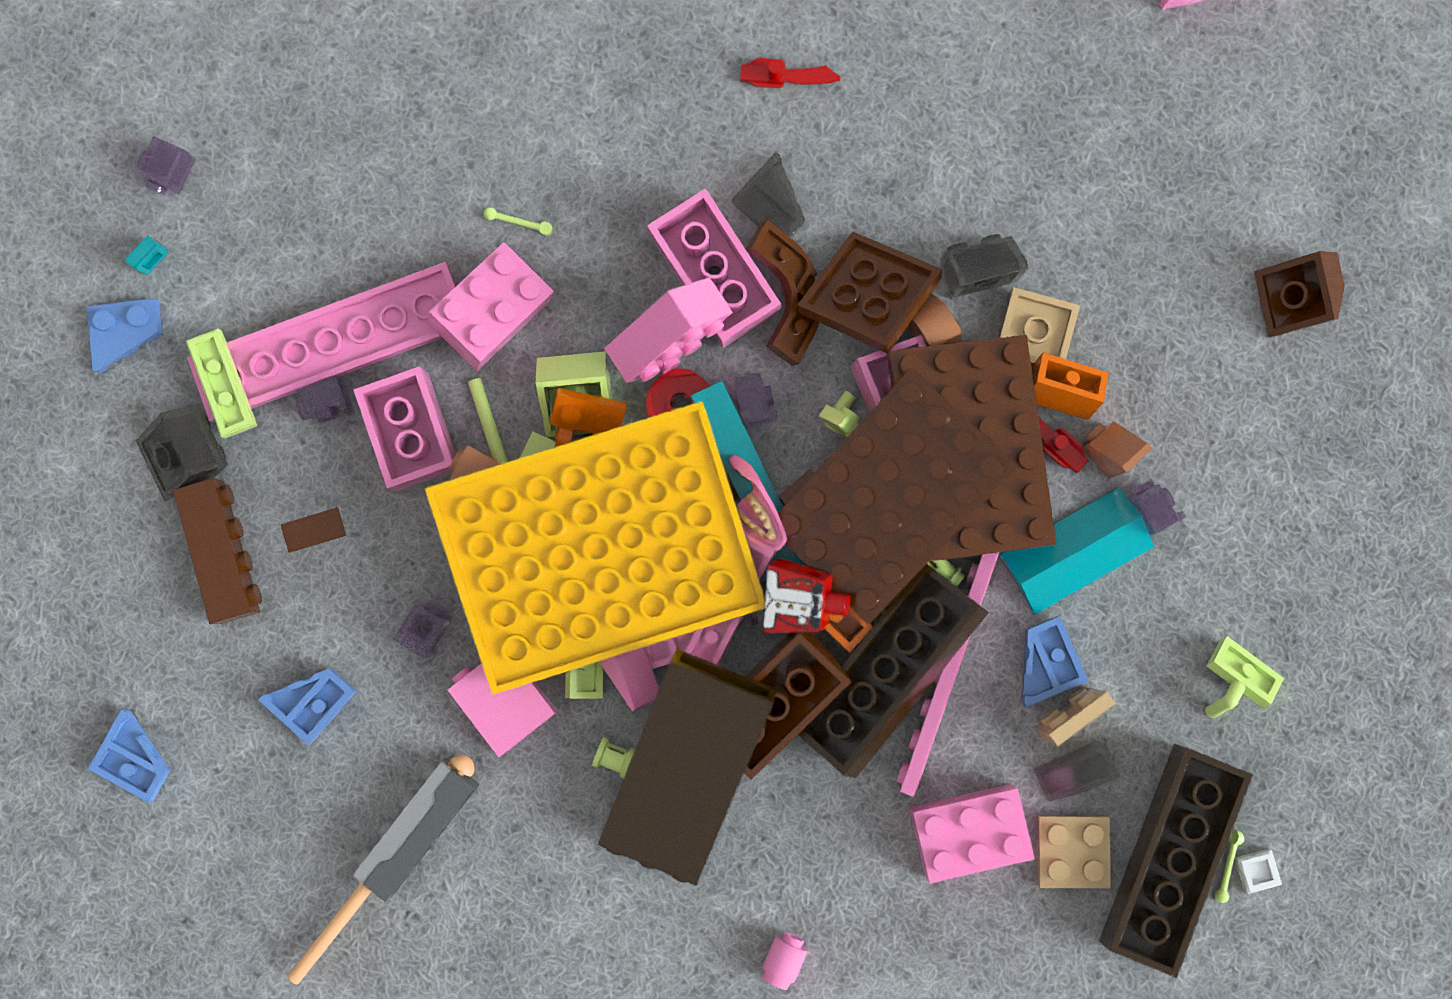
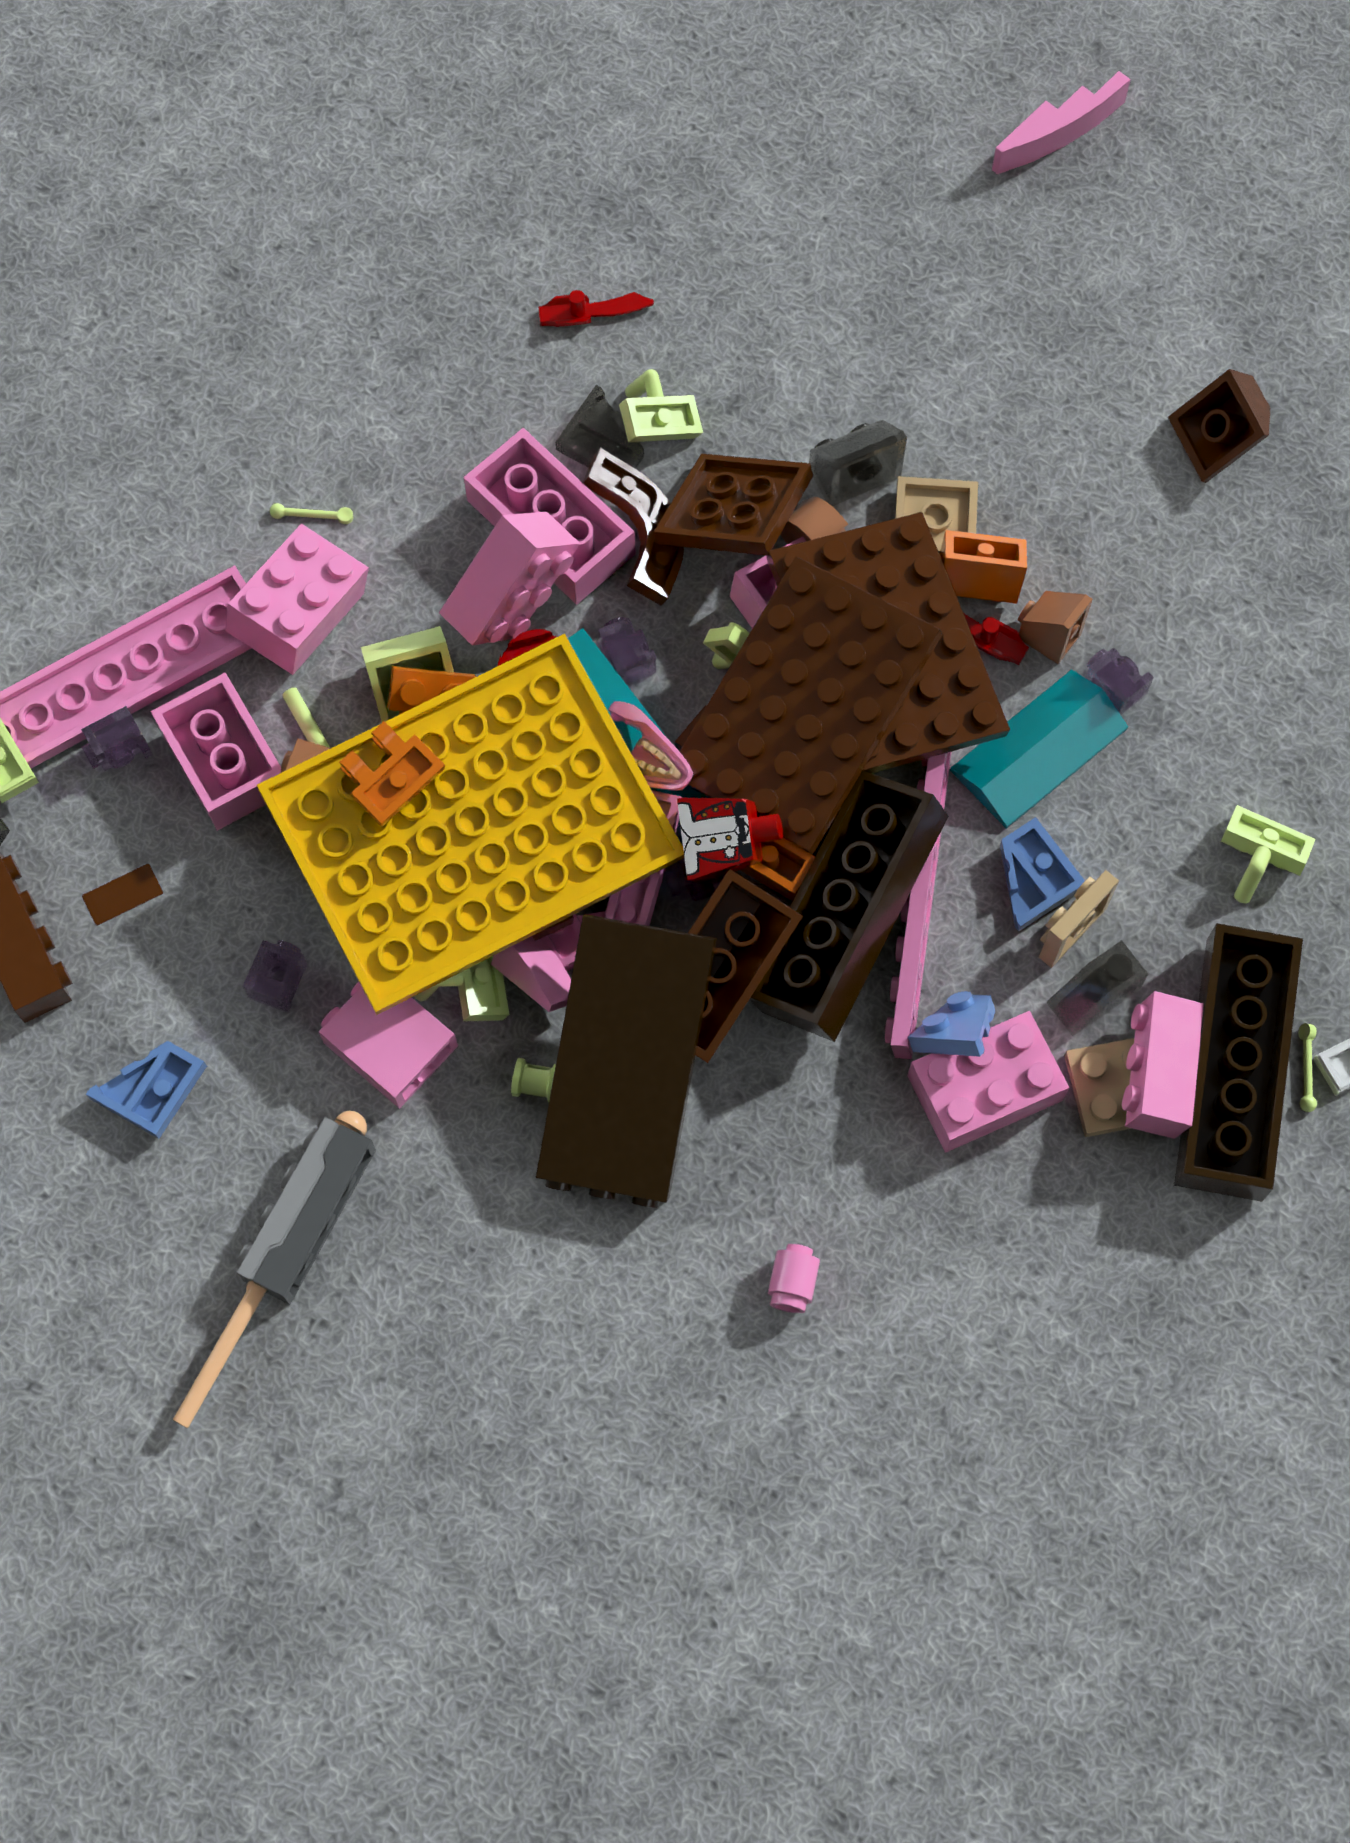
camera: 15 degrees left, 15 degrees down
(539, 510) = (397, 779): none -> orange plate
(823, 193) = (655, 415): none -> yellowish green plate
(956, 789) = (956, 1026): none -> medium blue wing
(1114, 853) = (1163, 1065): none -> bright pink brick

